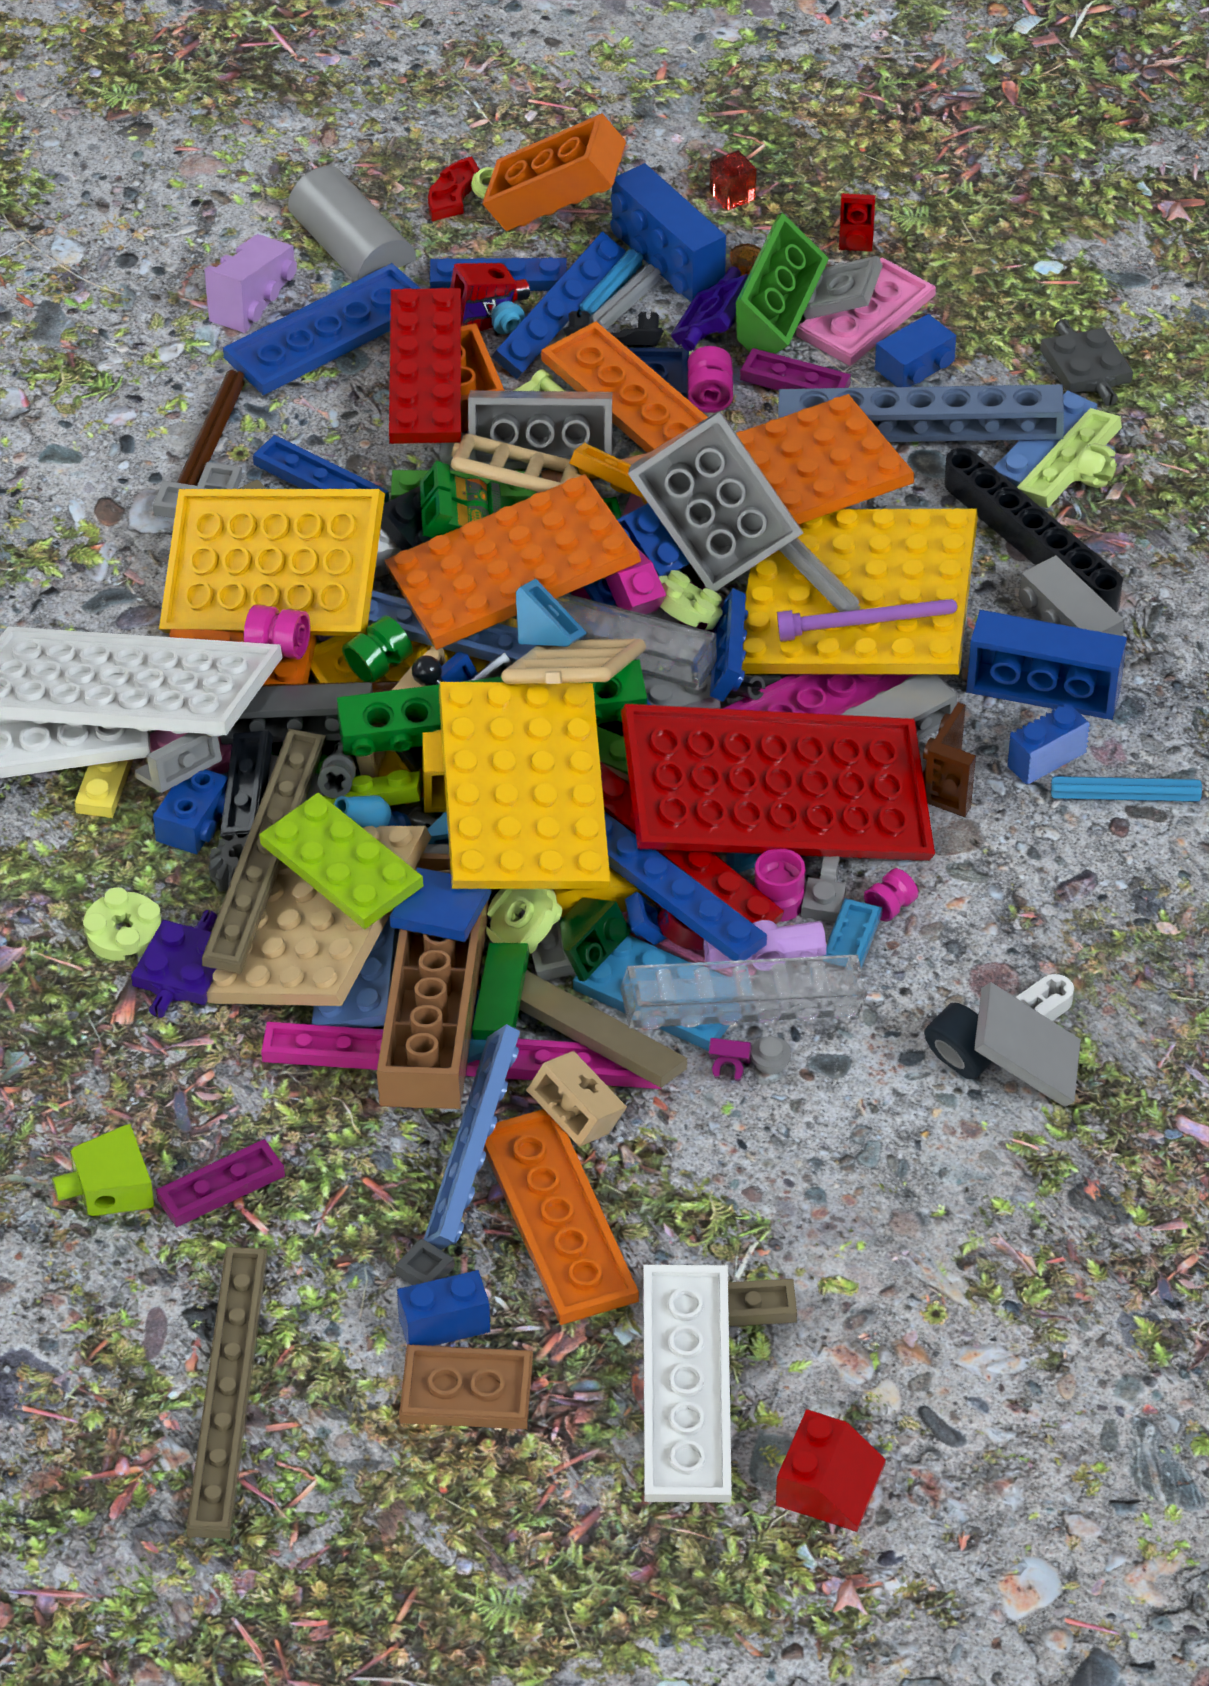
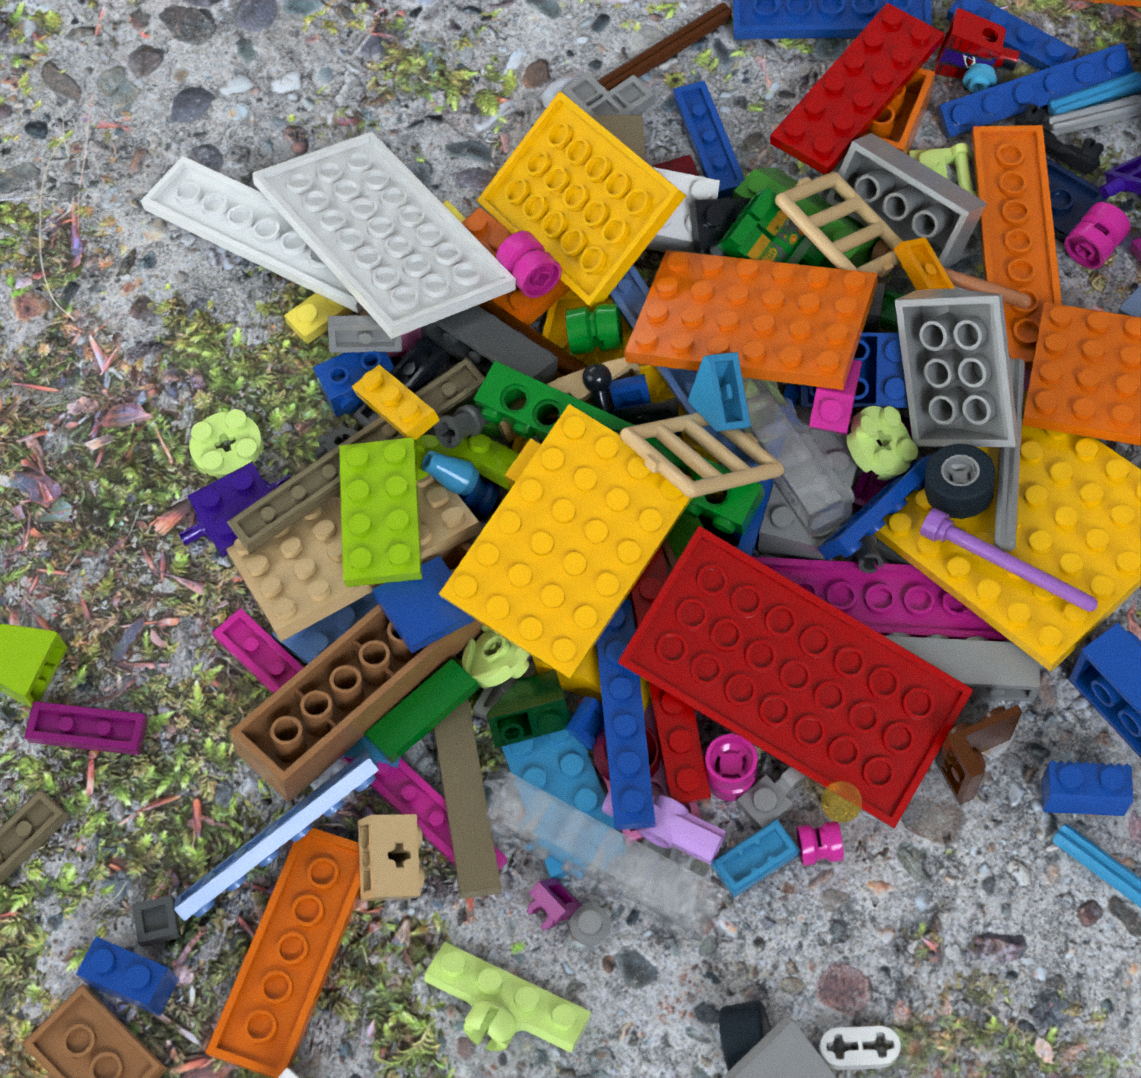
camera: 45 degrees right, 15 degrees up
(265, 788) = (395, 403): none -> yellow plate
(756, 1142) = (504, 1002): none -> yellowish green plate
(777, 584) = (960, 480): none -> black wheel
(885, 850) = (841, 801): none -> clear yellow plate

